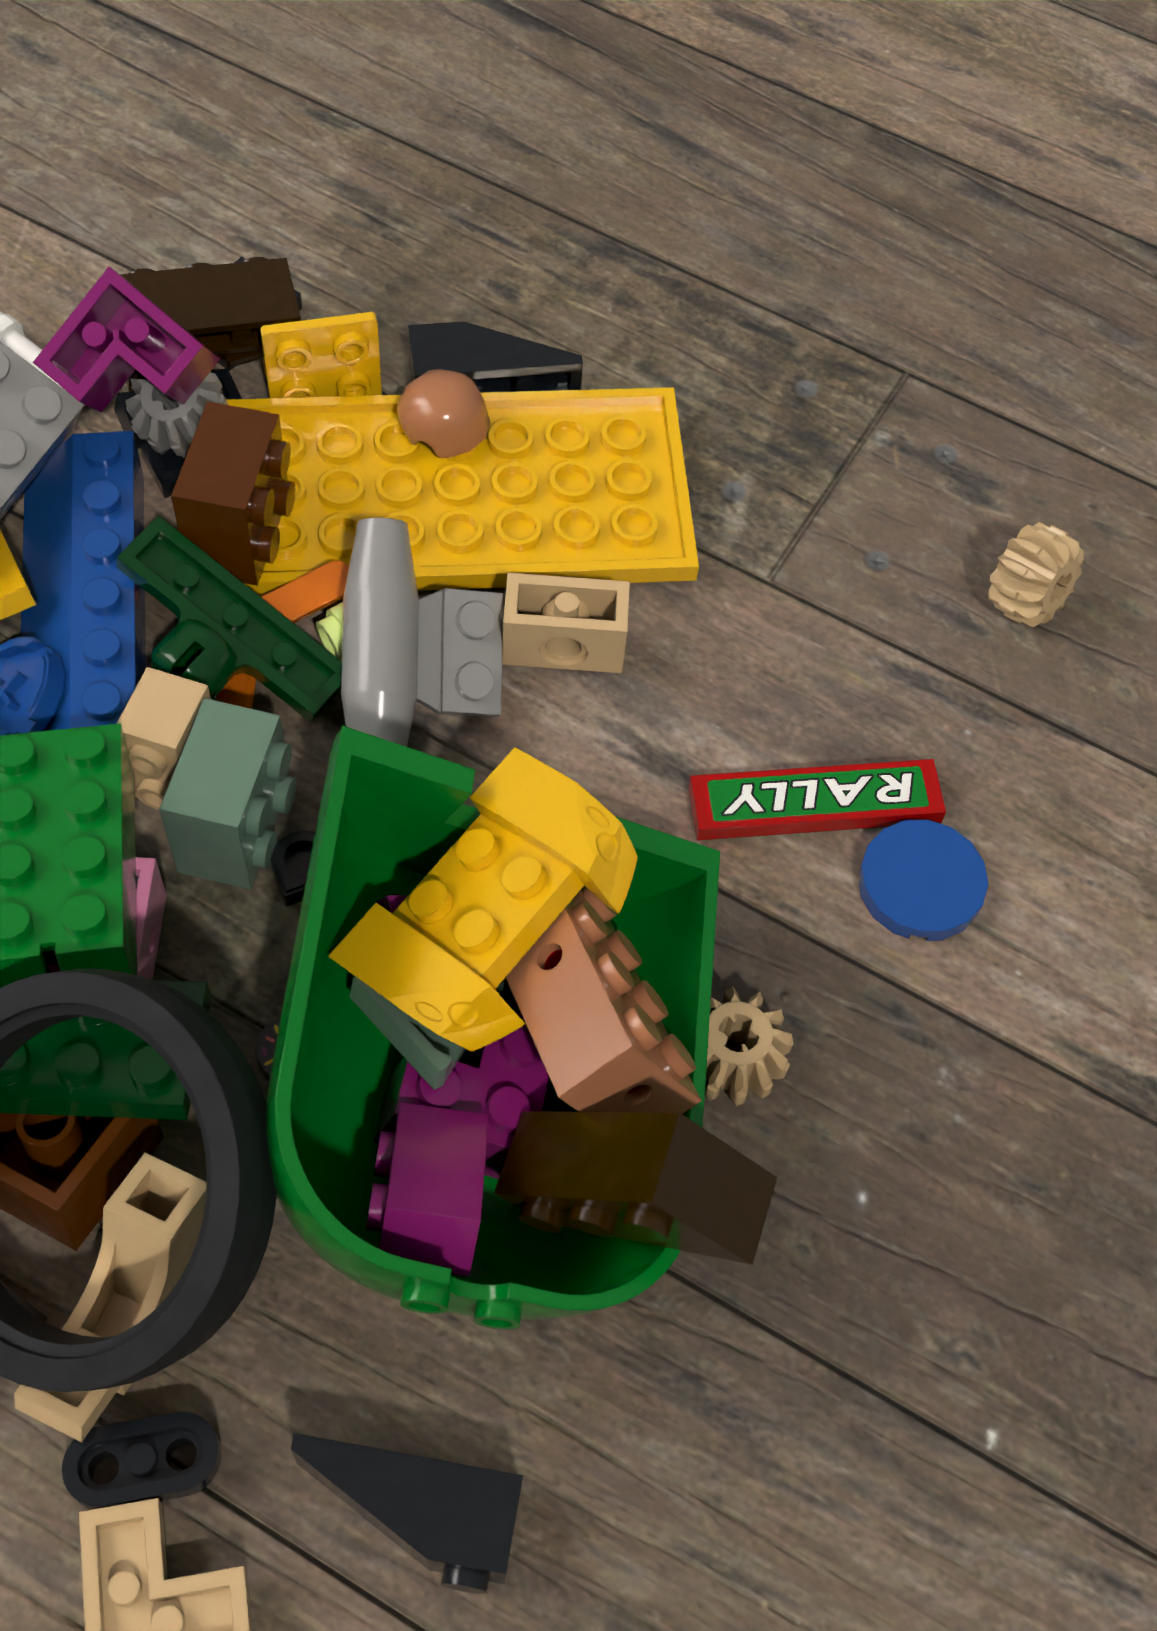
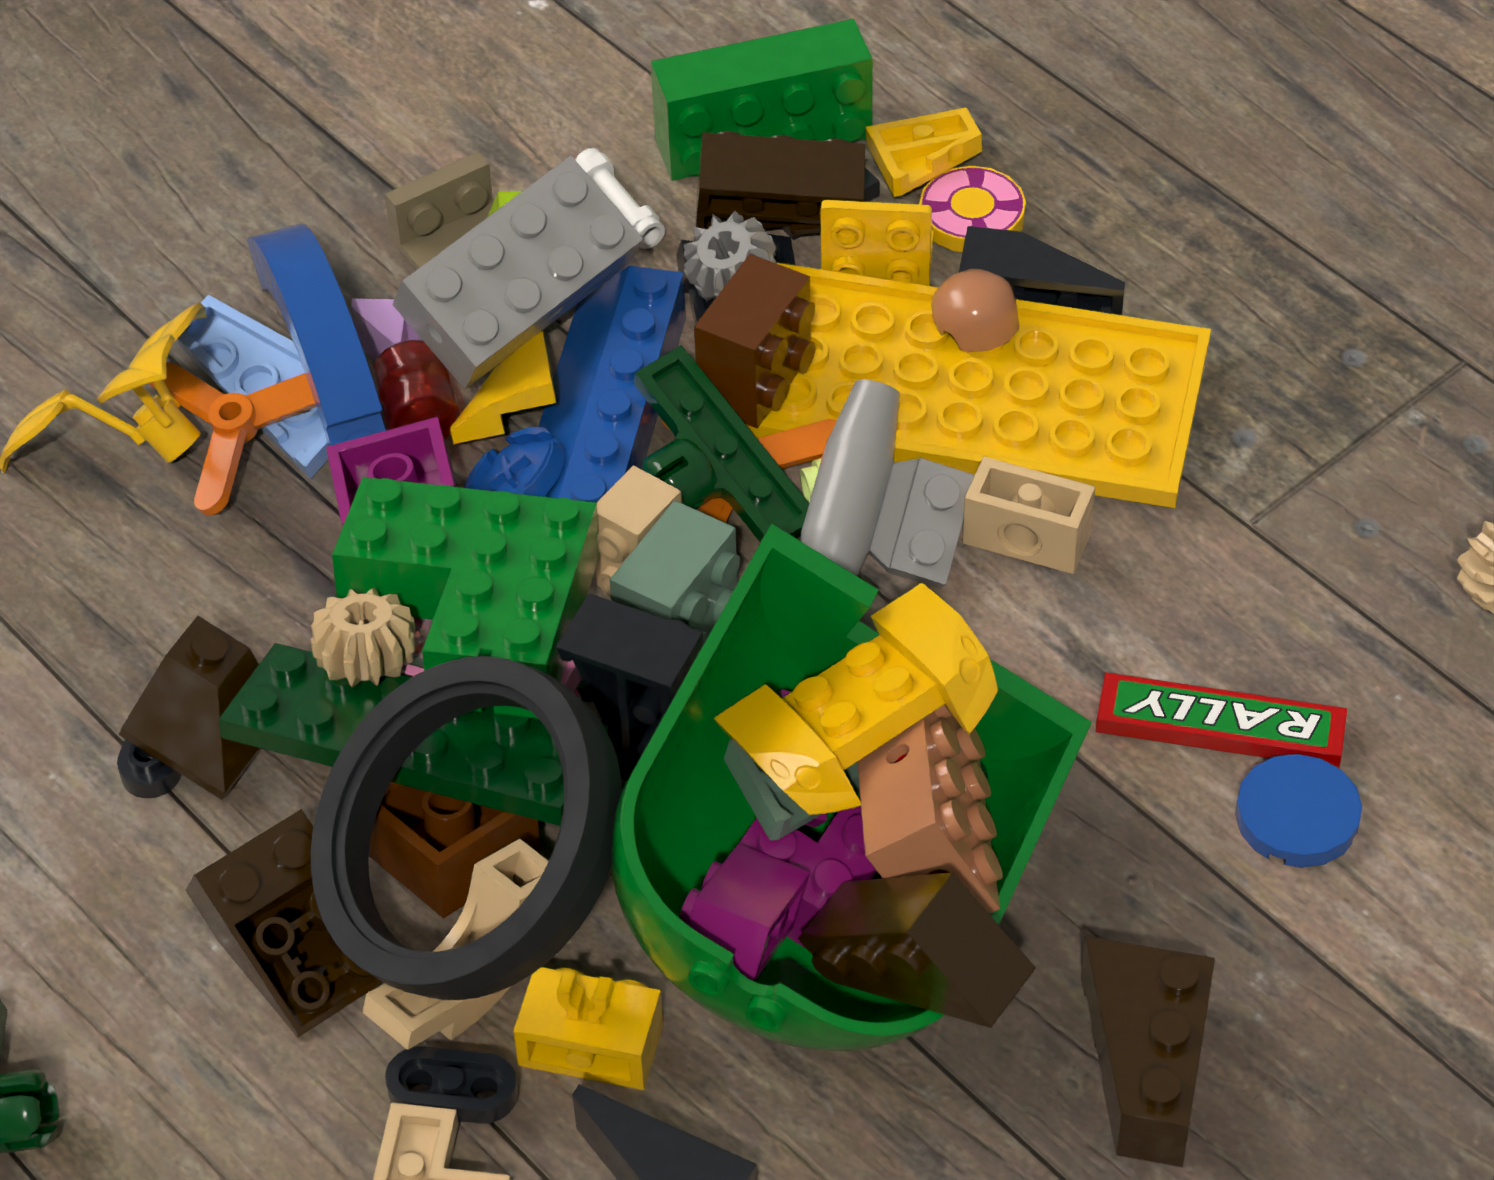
camera: 25 degrees right, 10 degrees down
(118, 333) = (687, 184): magenta brick -> none
(161, 215) = (789, 84): none -> green brick
(226, 920) = (629, 669): none -> black wedge
(284, 1344) = (589, 1027): none -> yellow brick
(333, 250) = (922, 147): none -> yellow wing
(400, 296) = (975, 199): none -> tile
(761, 1049) = (1064, 900): tan gear -> none
(881, 1192) = (1148, 1038): none -> dark brown wedge

